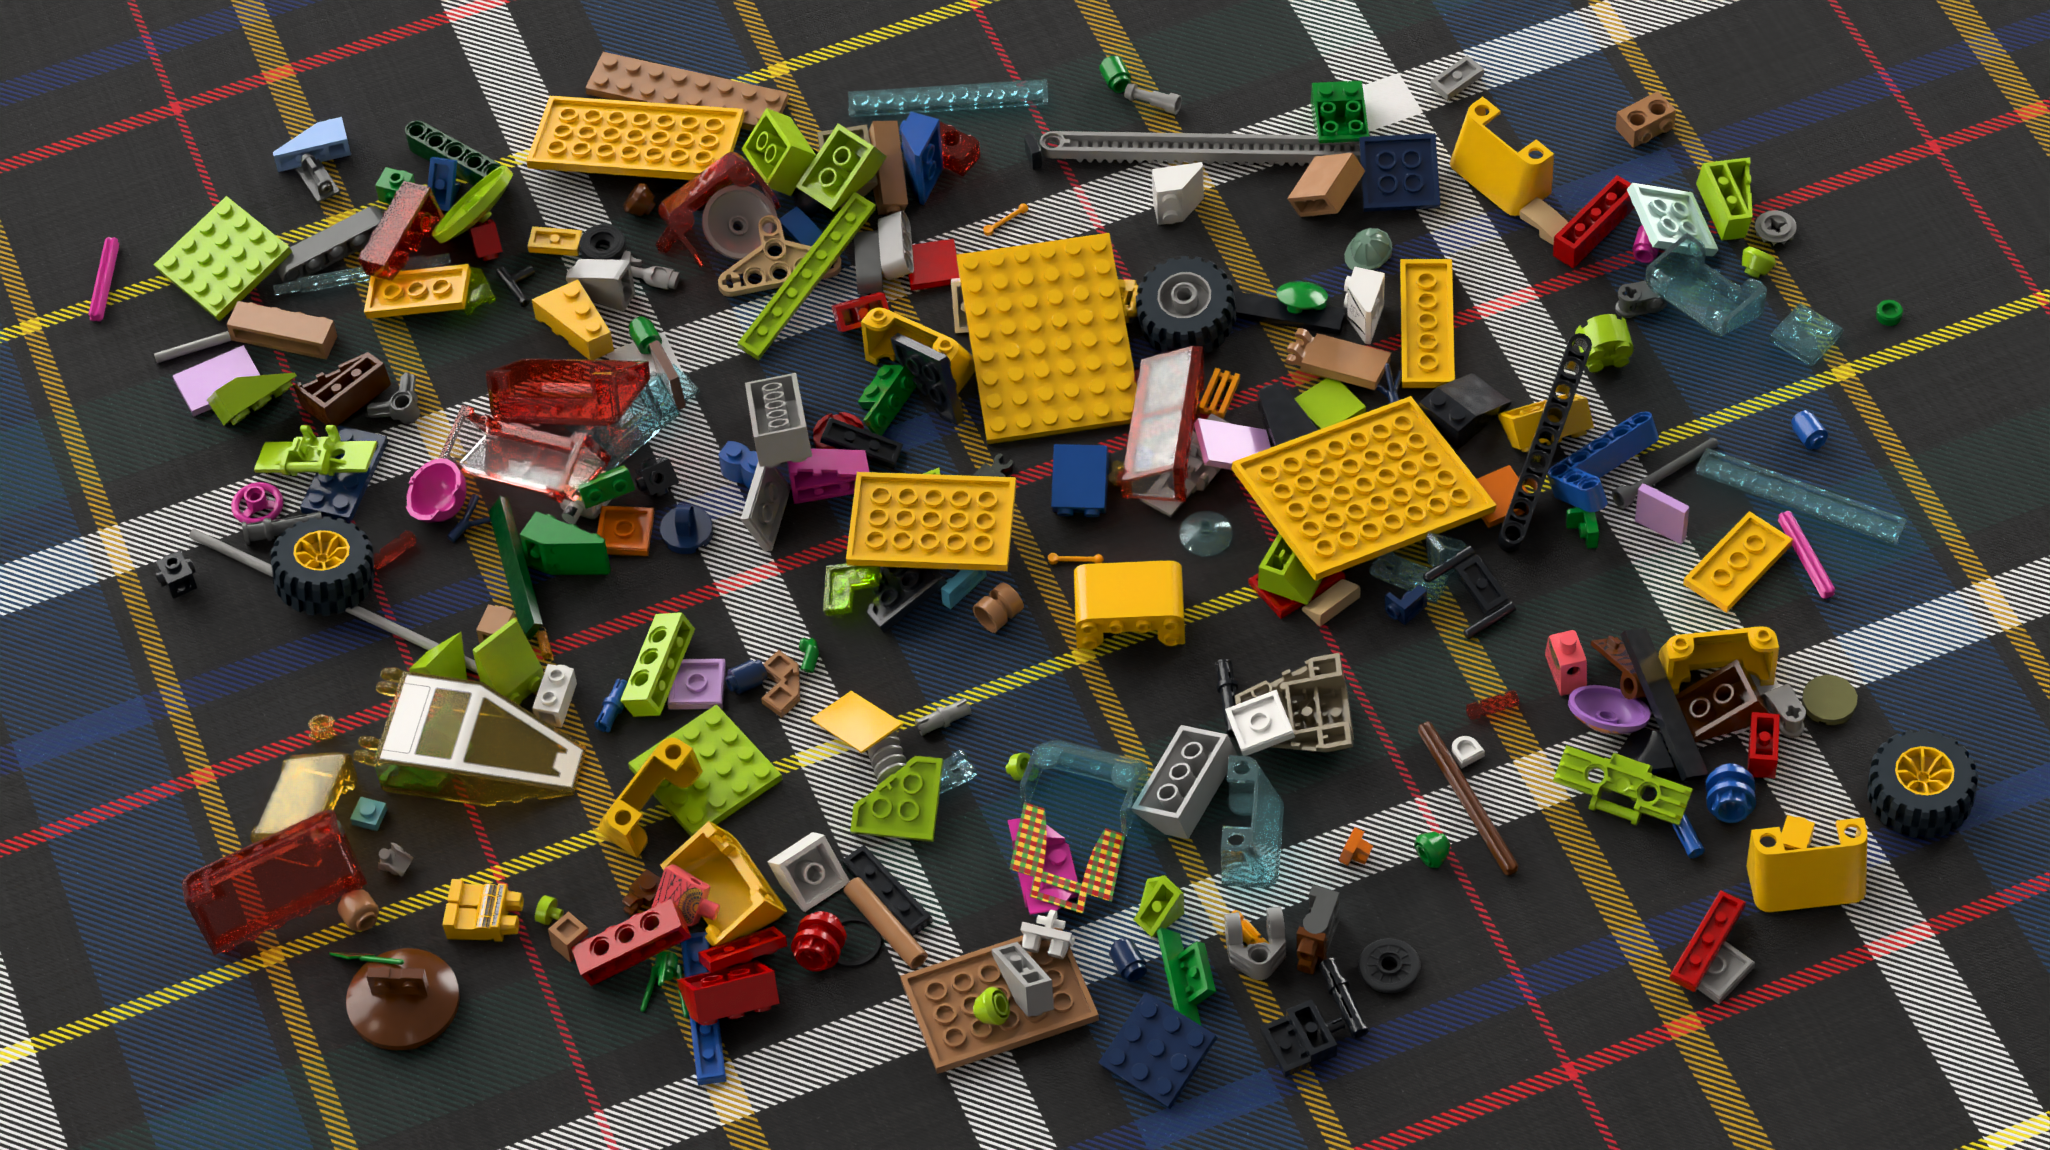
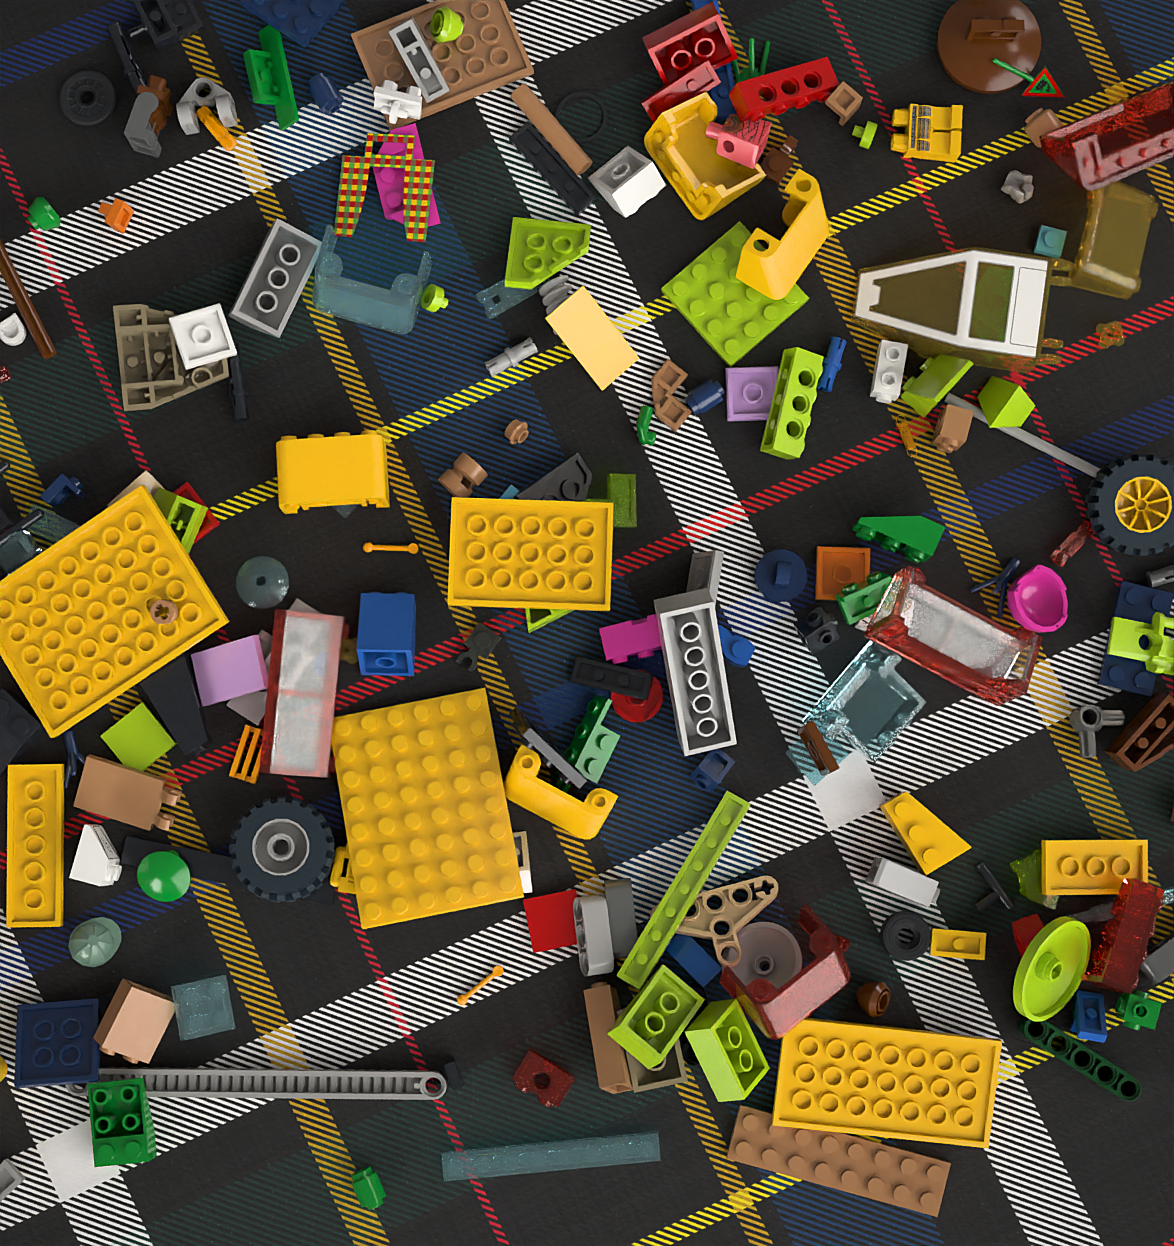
camera: 170 degrees right, 30 degrees up
(515, 567) = (946, 517): dark green tile -> none
(565, 390) = (919, 718): clear red windscreen -> none
(642, 333) = (848, 815): green brick -> none
(653, 276) = (846, 901): light grey piece -> none
(770, 368) = (712, 770): none -> dark blue bracket
(818, 941) = (610, 100): red piece -> none
(851, 313) = (623, 844): red brick -> none
(921, 153) = (573, 1048): blue slope -> none
(941, 648) = (516, 431): none -> medium nougat plate
(1160, 905) = (300, 151): lime slope -> none
(1170, 102) = (322, 1153): light grey piece -> none
(1177, 191) = (297, 1006): white slope -> none
(1258, 857) = (215, 184): clear light blue windscreen -> none
(1264, 198) = (203, 1007): none -> clear light blue plate
(1297, 474) = (155, 608): none -> medium nougat bush

